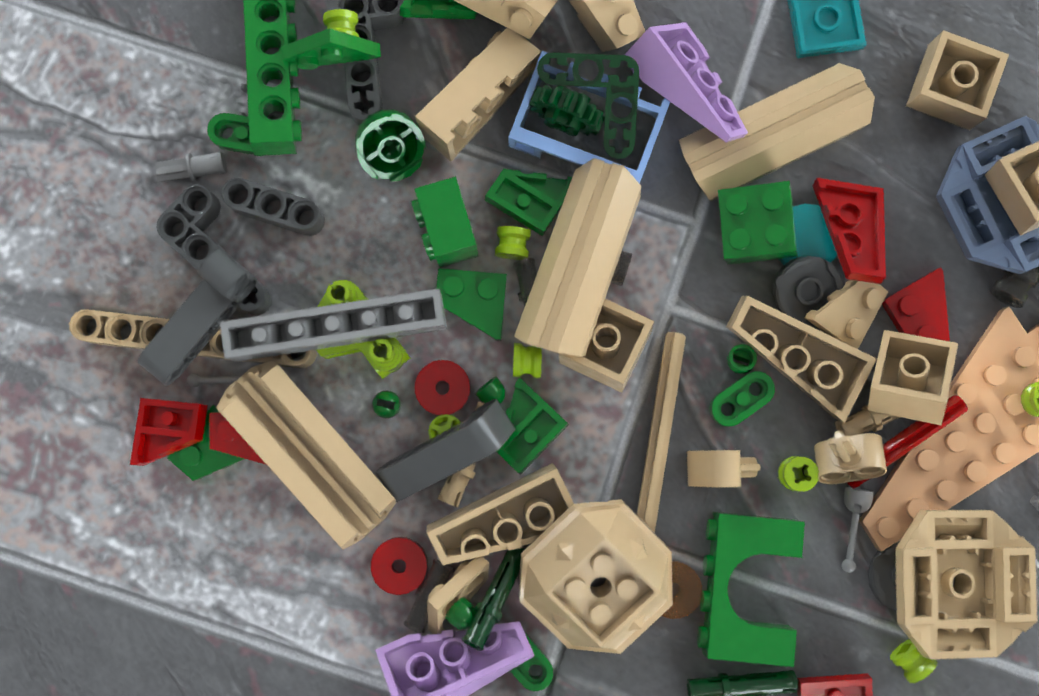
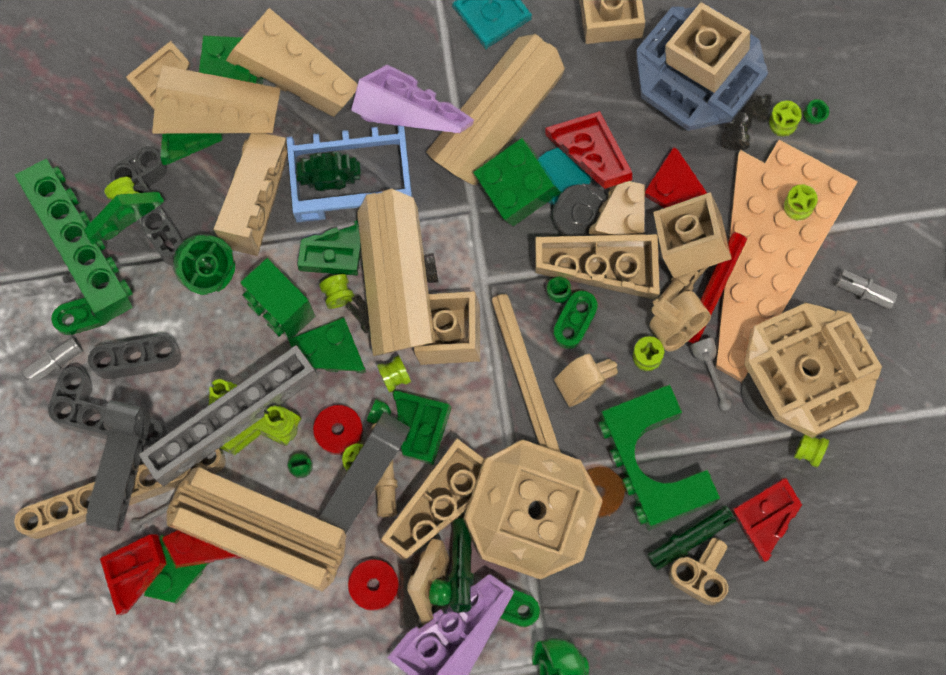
camera: 20 degrees left, 10 degrees down
(614, 90) = (356, 137): dark green beam -> none

